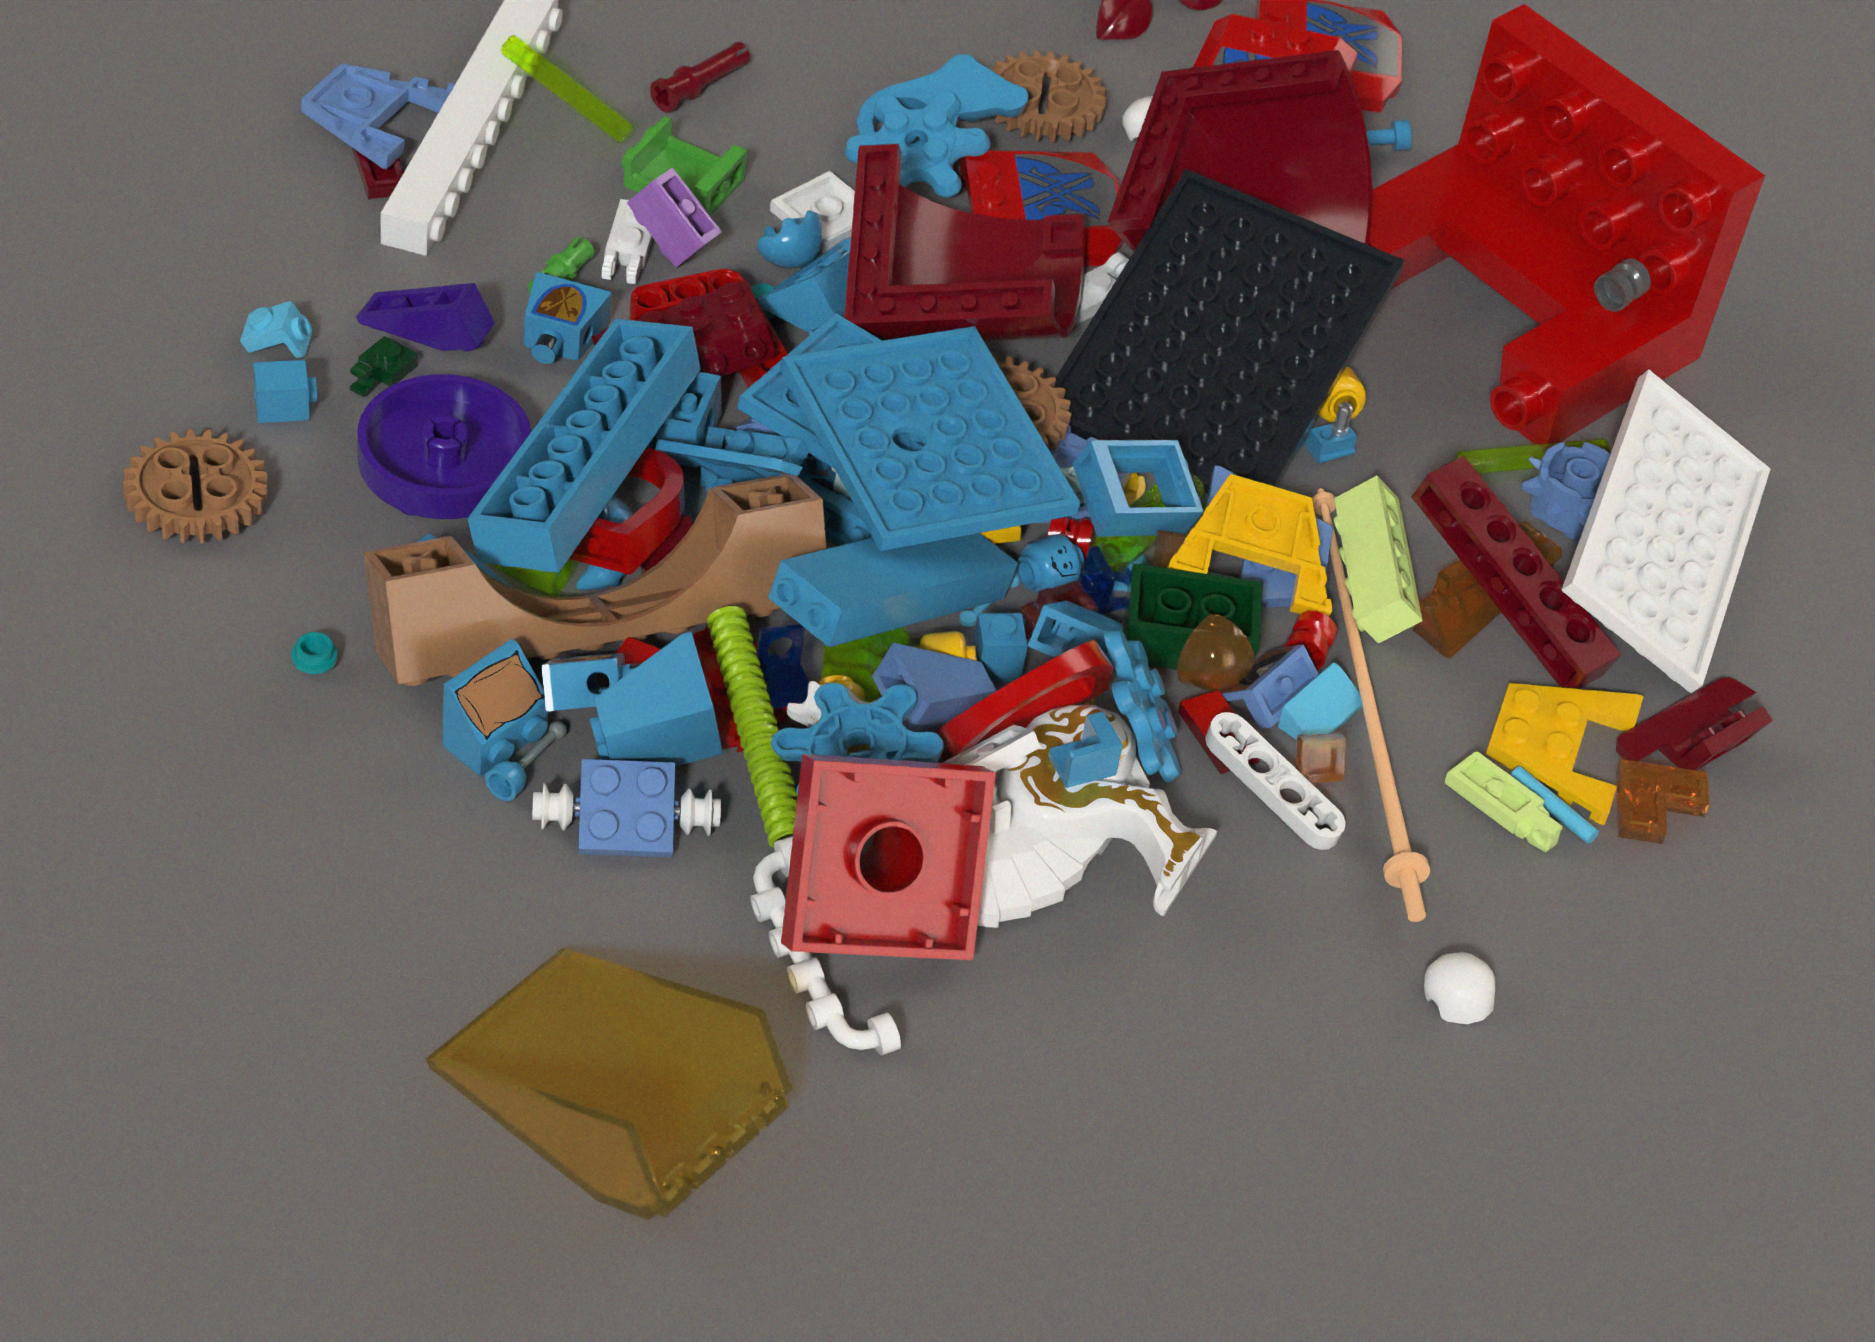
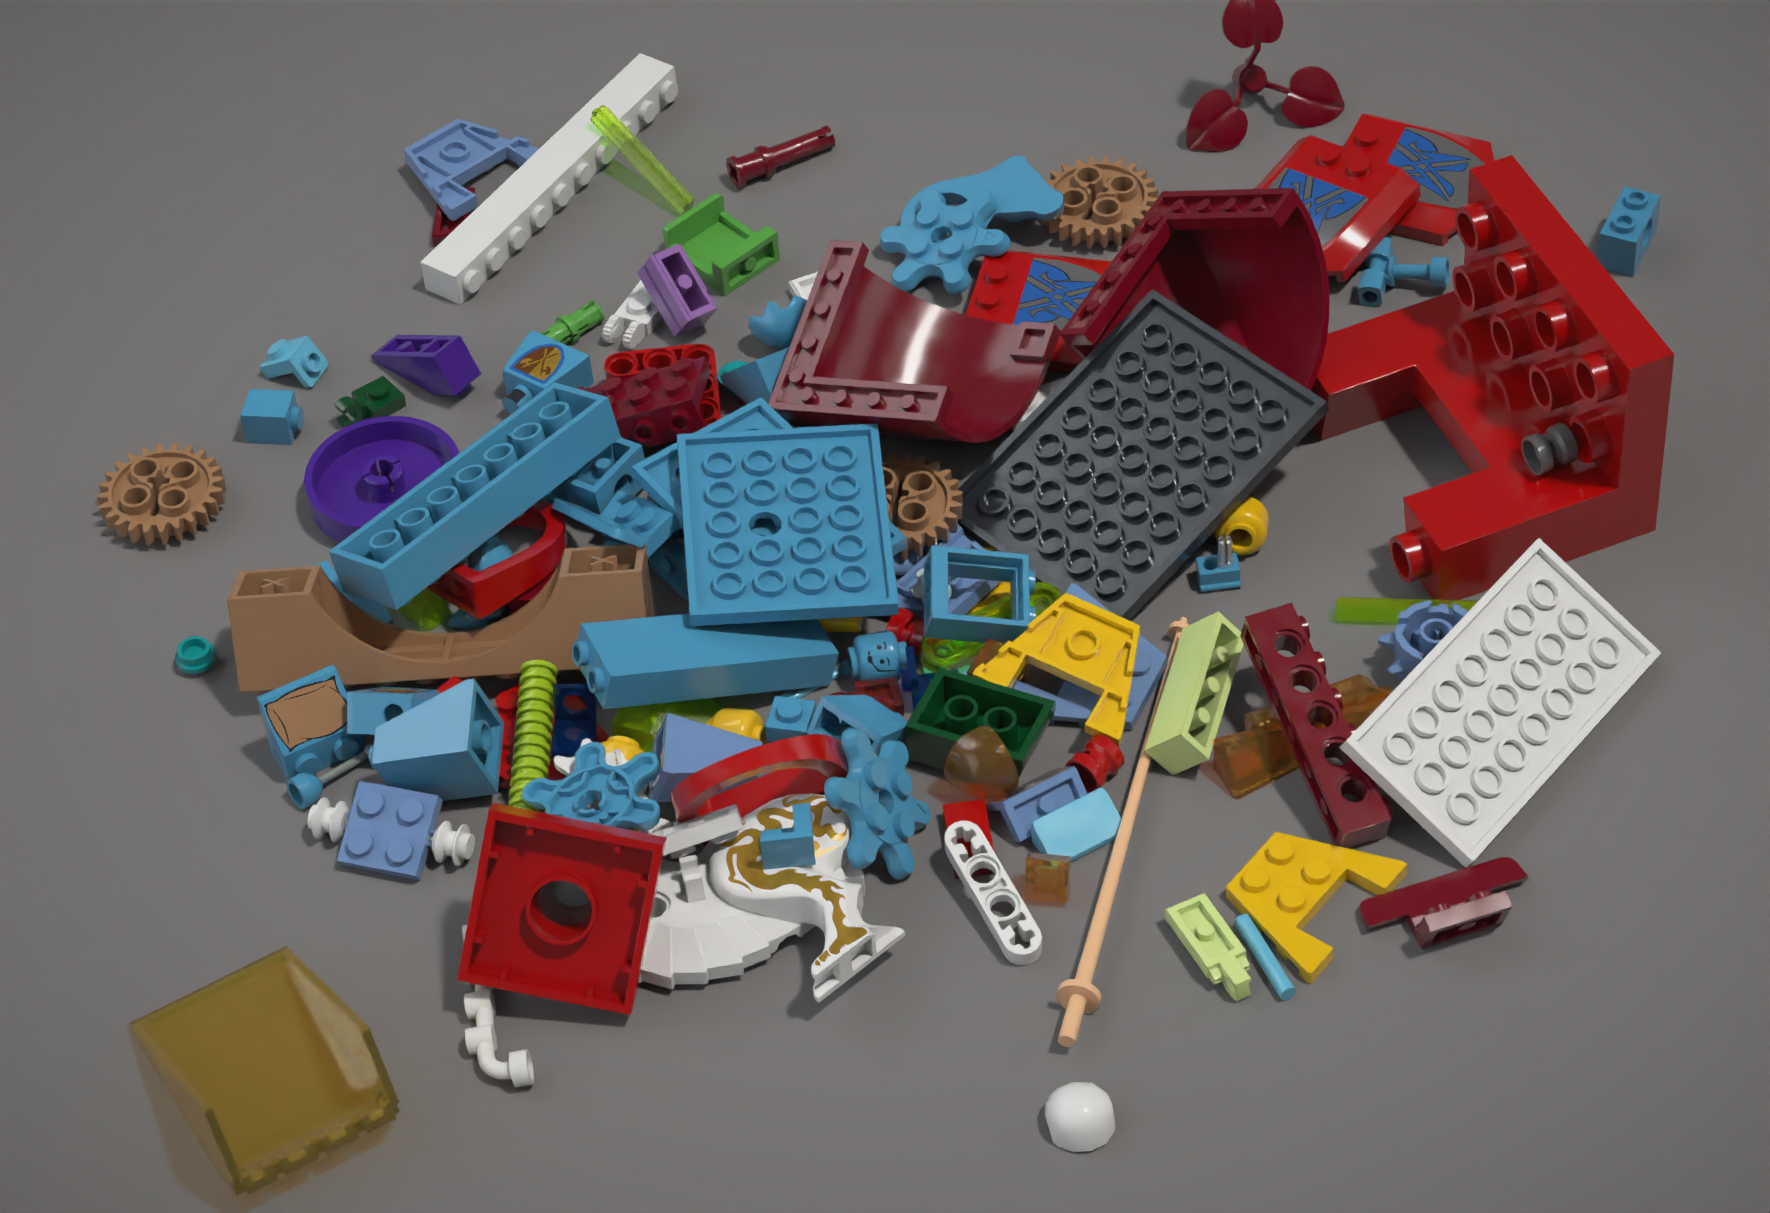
camera: 30 degrees right, 0 degrees up
(1649, 791) = (1368, 955): clear orange plate -> none

